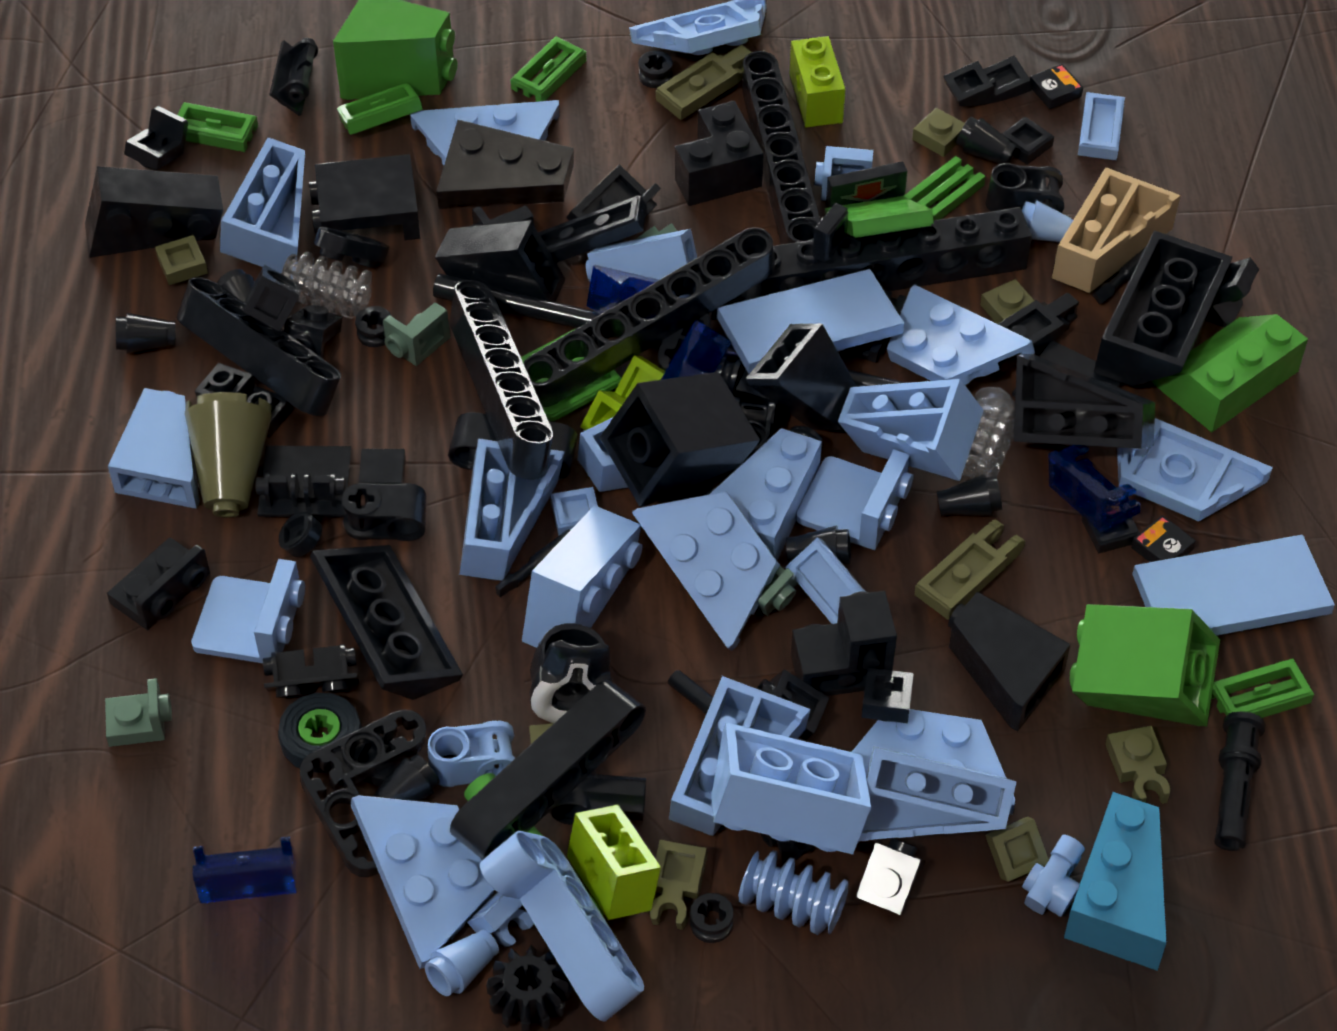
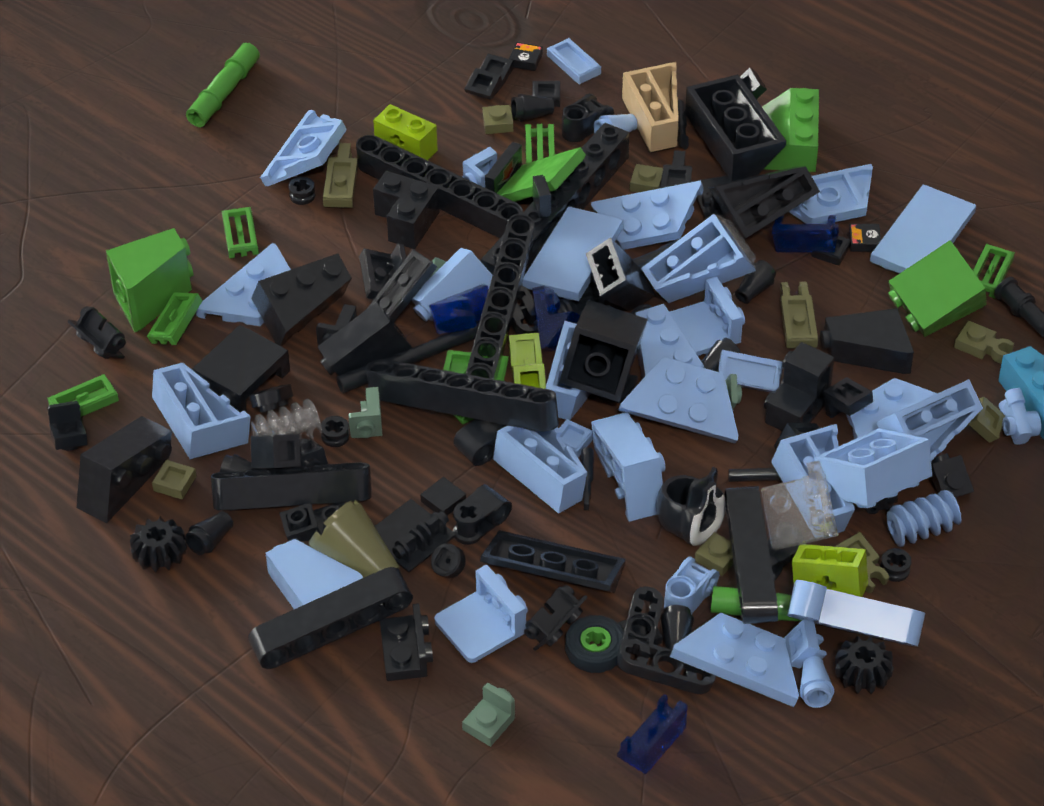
camera: 45 degrees left, 5 degrees down
(87, 308) = (158, 544): none -> black gear
(124, 498) = (330, 618): none -> black beam
(651, 766) = (800, 509): none -> clear bracket

